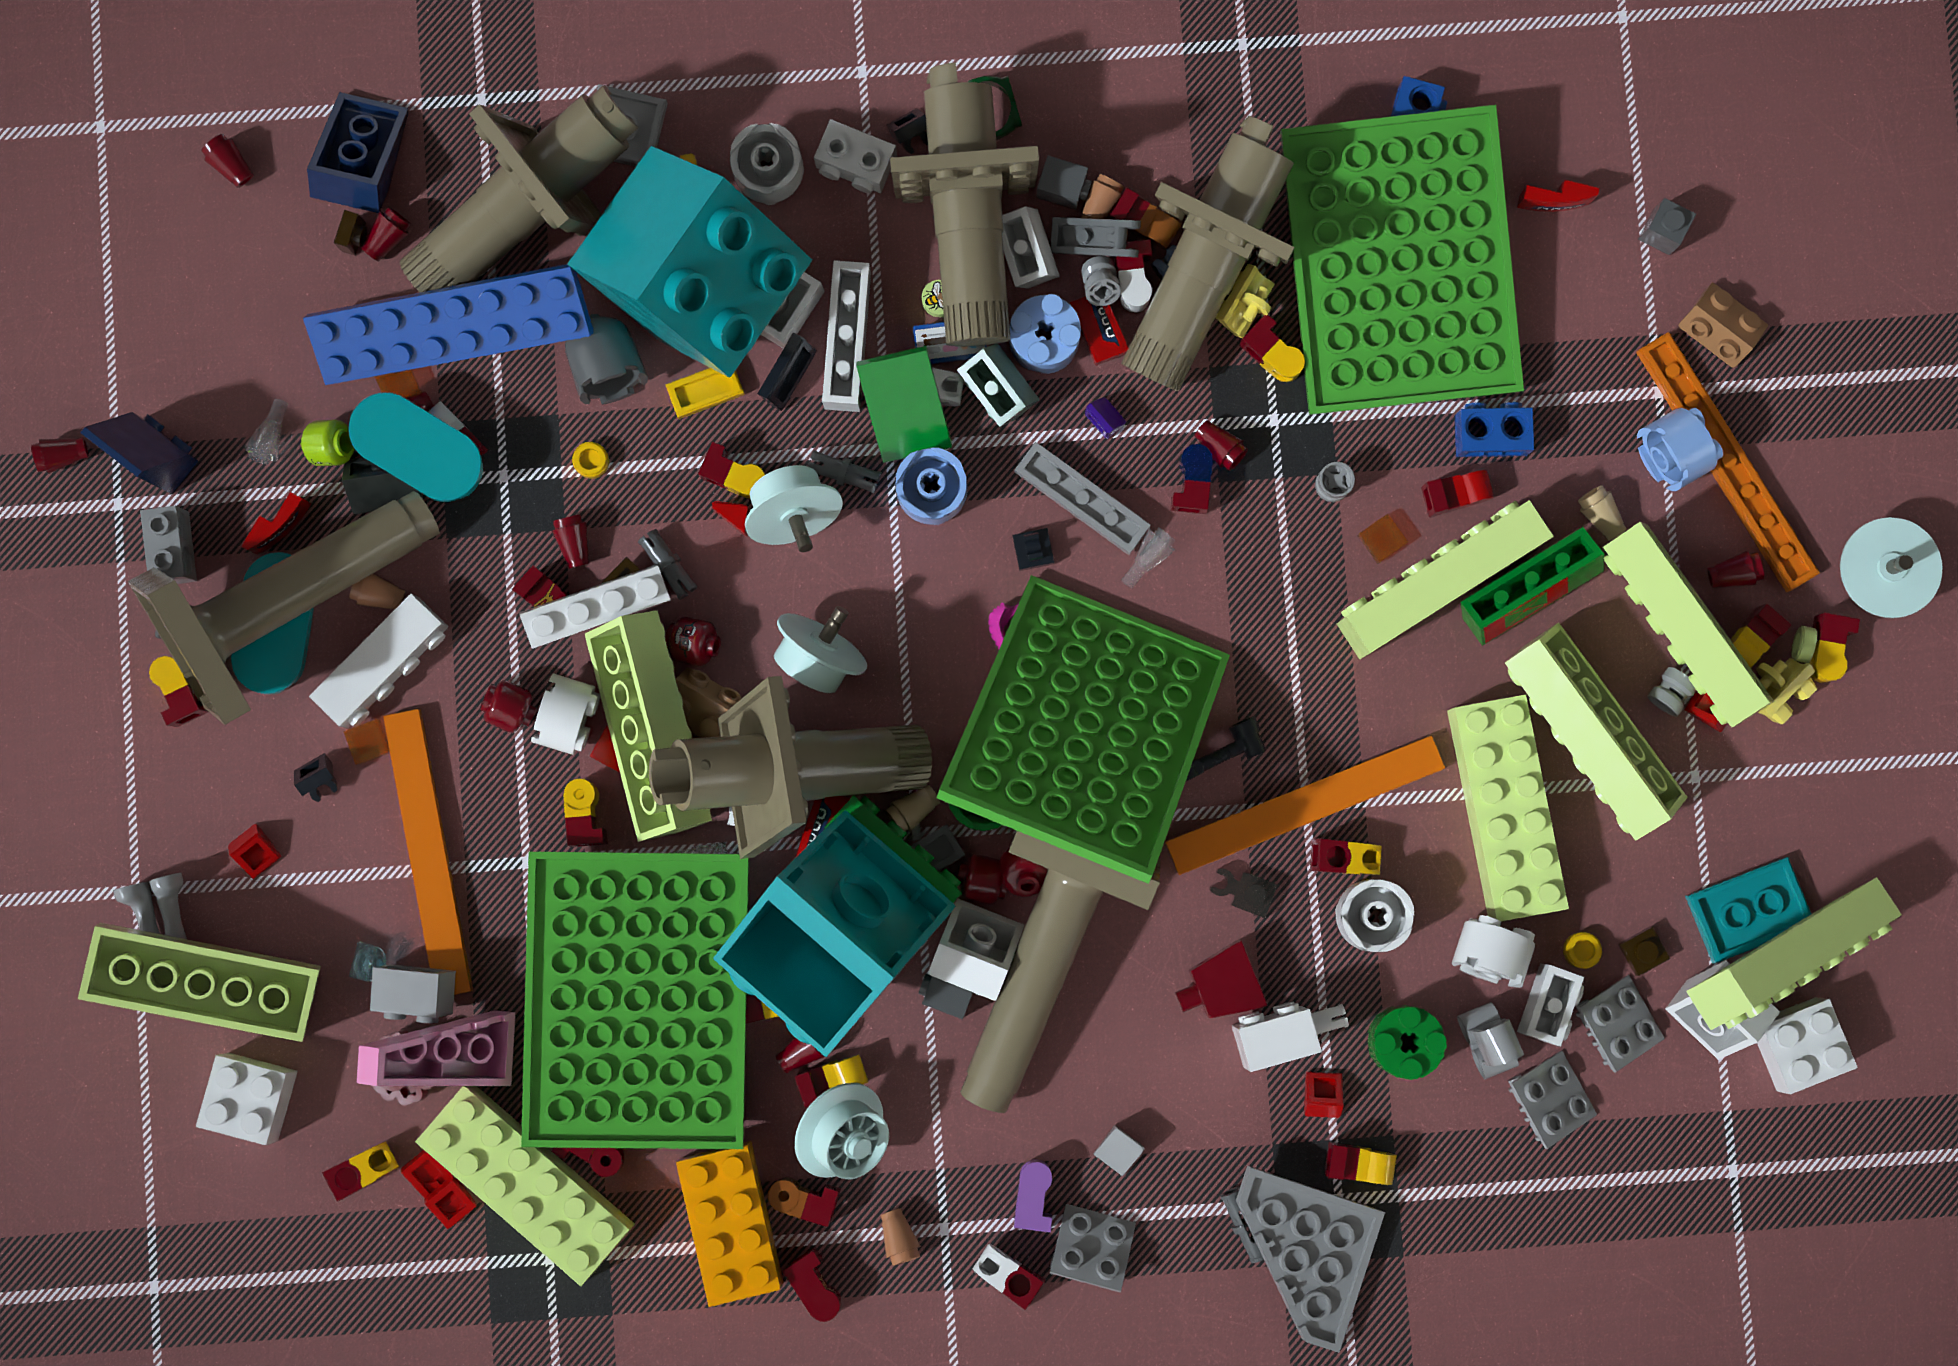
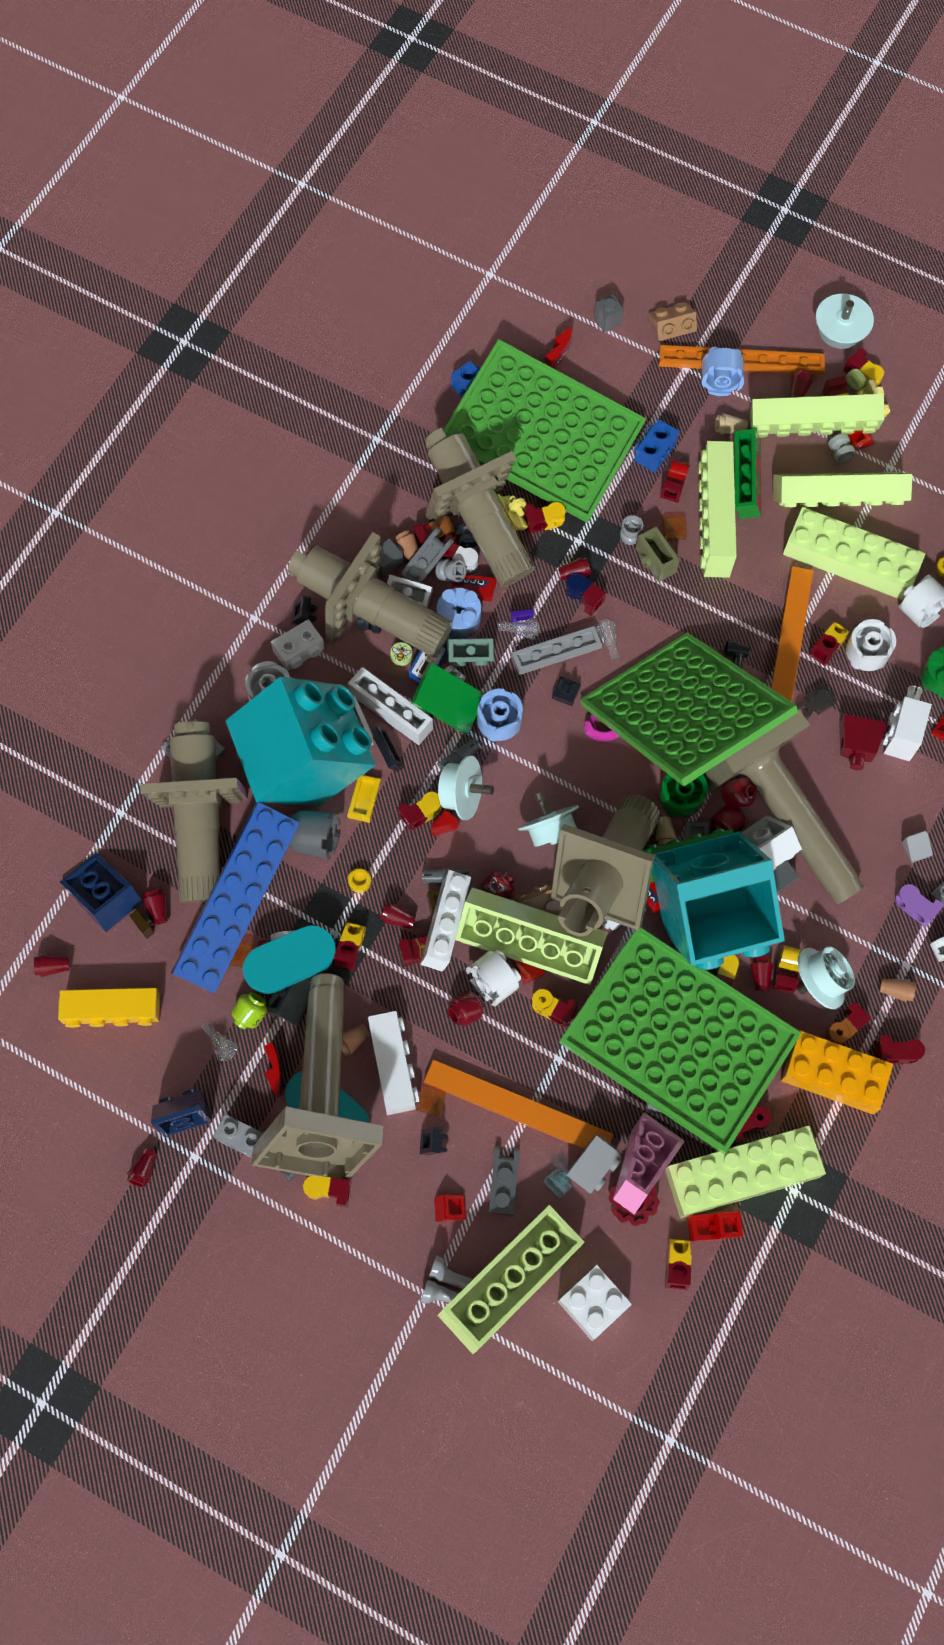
camera: 60 degrees left, 15 degrees down
(222, 270) = (109, 1006): none -> yellow brick
(325, 896) = (503, 1183): none -> dark grey hinge
(494, 507) = (349, 946): none -> leg
(1087, 438) = (527, 628): none -> clear cone
(1315, 540) = (657, 554): none -> olive brick

